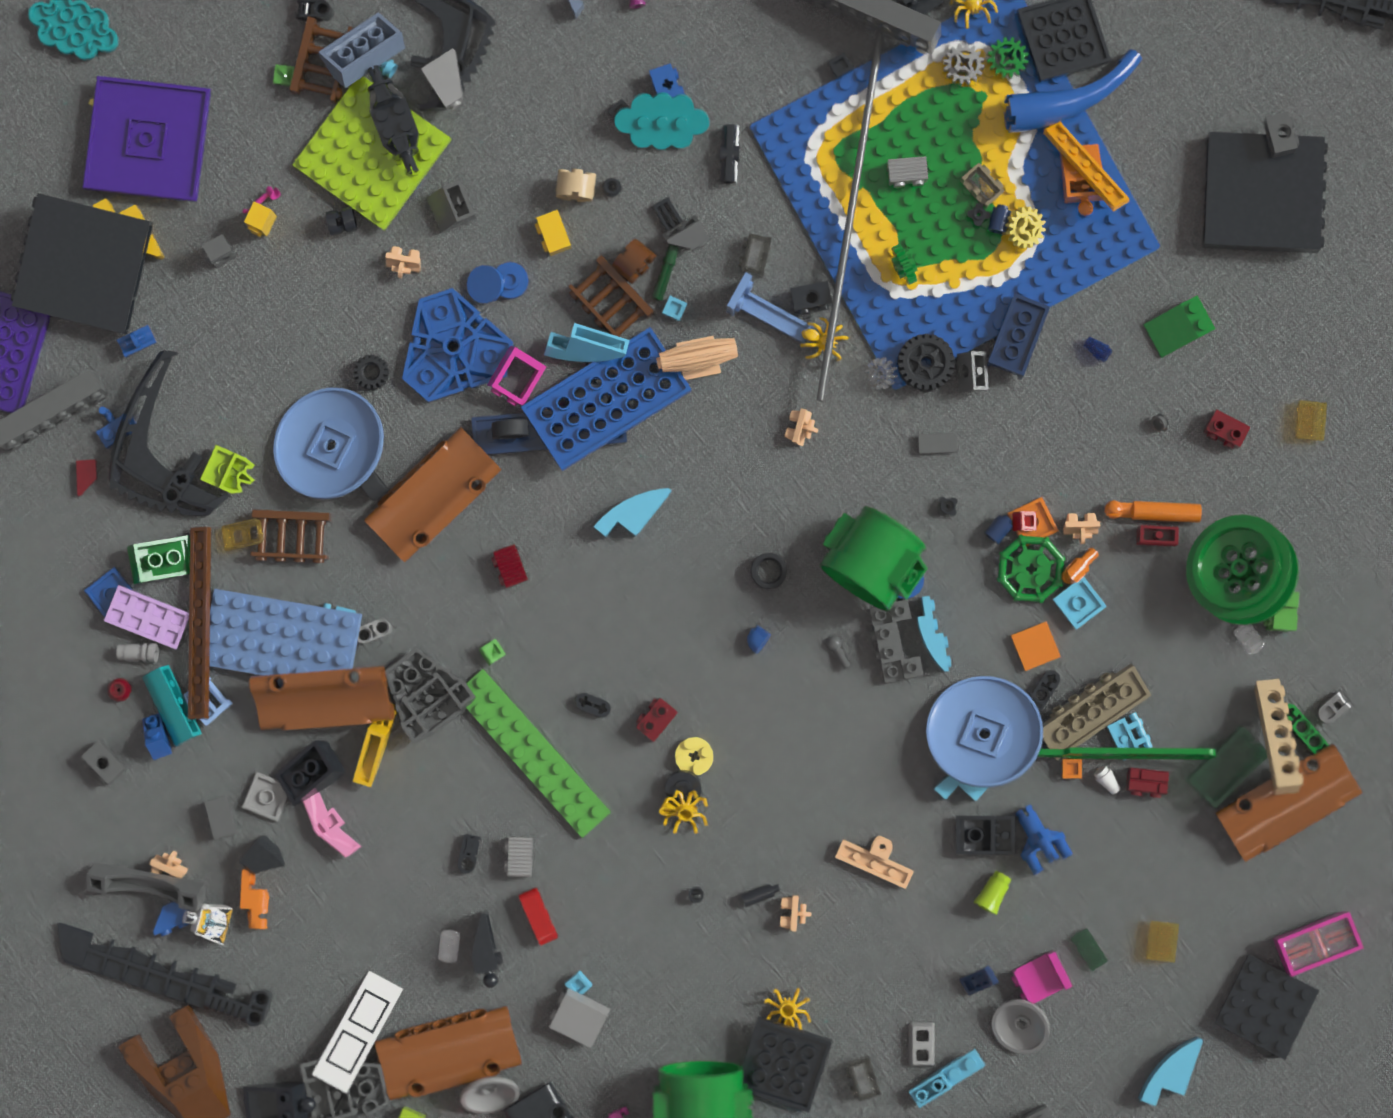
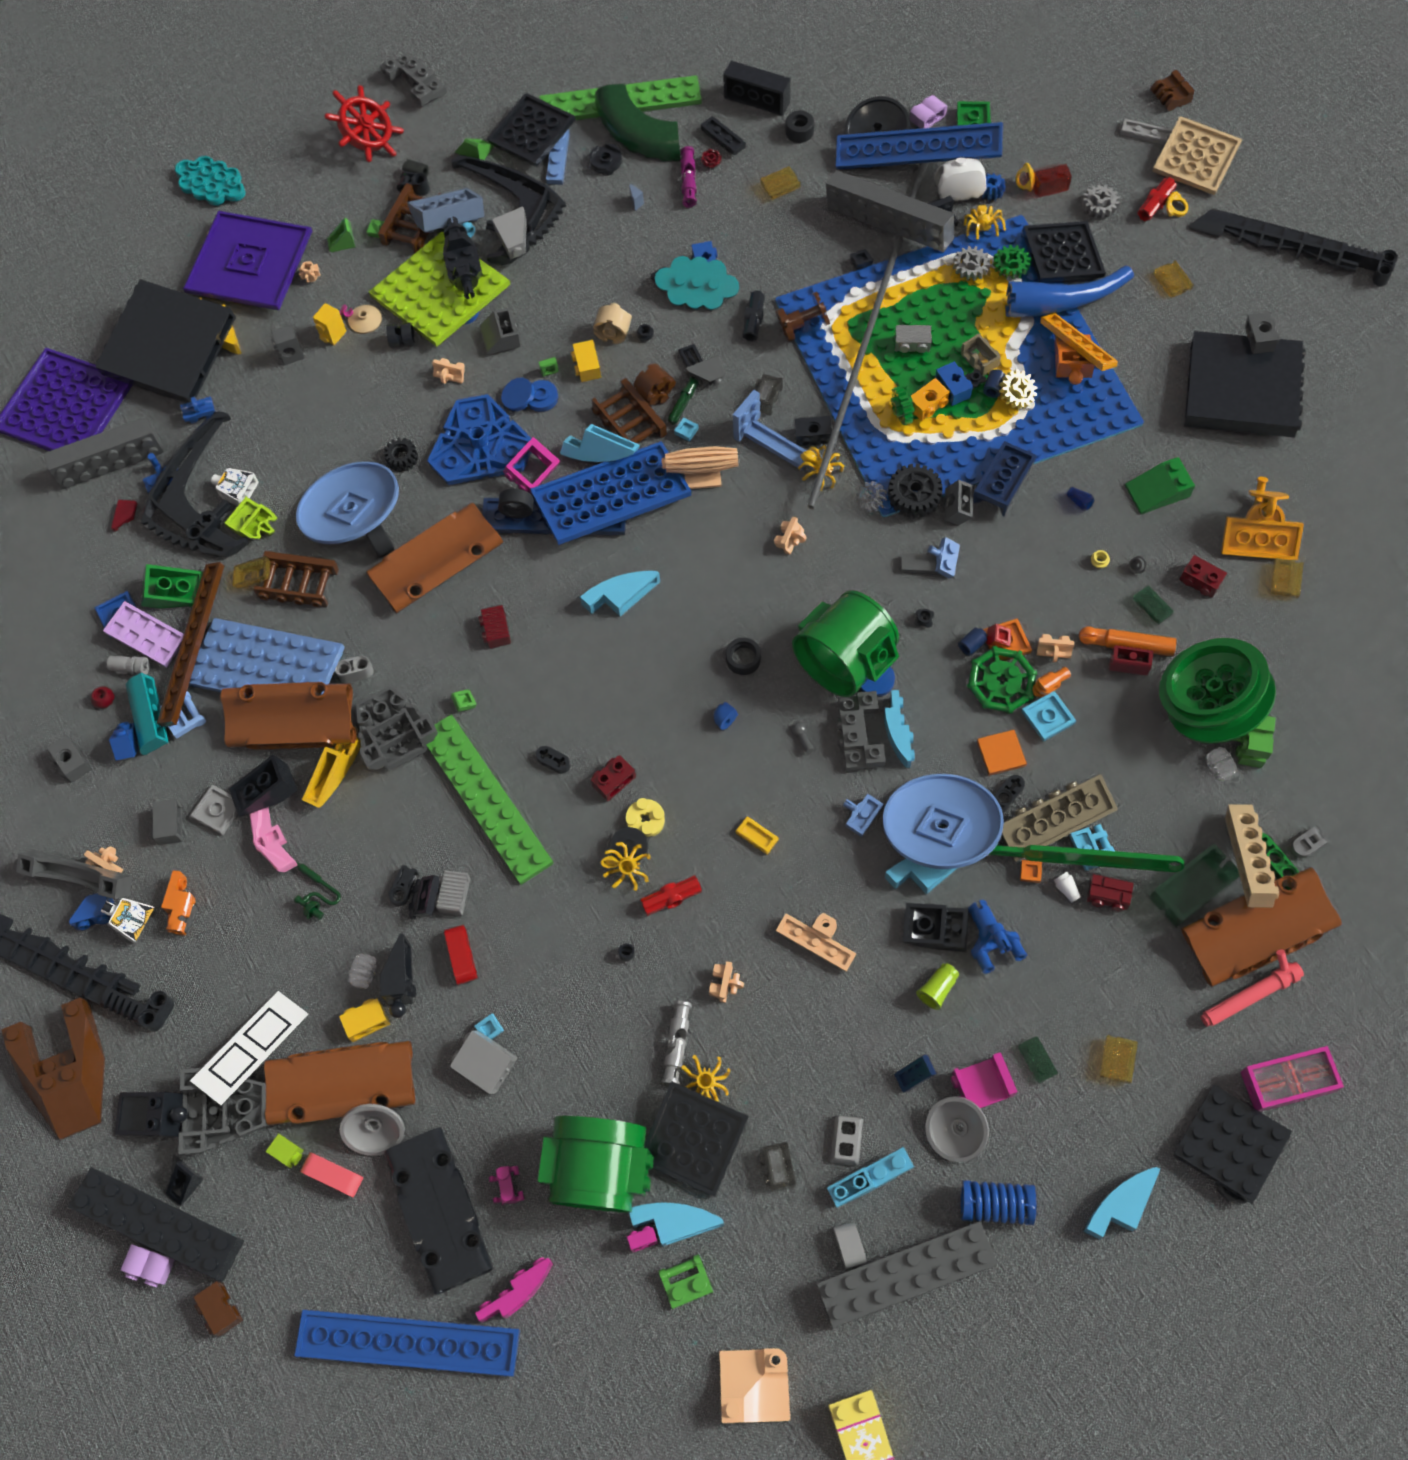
camera: 15 degrees right, 20 degrees down
(199, 431) = (235, 485): none -> white torso
(219, 151) = (309, 271): none -> light nougat gear
(245, 92) = (341, 237): none -> bright green slope
(262, 856) = (194, 858): black slope -> none
(299, 206) = (365, 319): none -> tan dish
(384, 887) = (311, 908): none -> dark green piece
(459, 990) = (364, 1019): none -> yellow brick
(492, 866) = (424, 897): none -> black plate
(512, 244) = (548, 366): none -> bright green tile
(730, 833) = (671, 895): none -> red piece
(755, 983) = (675, 1052): none -> light grey piece
(759, 894) = (692, 960): black cylinder -> none
(778, 162) = (796, 319): none -> reddish brown piece
(805, 760) = (757, 835): none -> yellow tile
(906, 728) = (863, 814): none -> medium blue plate
(936, 238) = (935, 393): none -> light orange brick
(946, 219) = (954, 380): none -> blue brick
(964, 435) = (946, 557): none -> medium blue plate
(1061, 1079) = (999, 1194): none -> blue piece
(1121, 412) = (1100, 554): none -> light yellow plate
(1177, 466) = (1153, 605): none -> clear green plate
(1185, 56) = (1173, 279): none -> clear yellow plate
(1289, 376) = (1264, 529): none -> light orange plate
(1306, 848) = (1278, 979): none -> coral cylinder

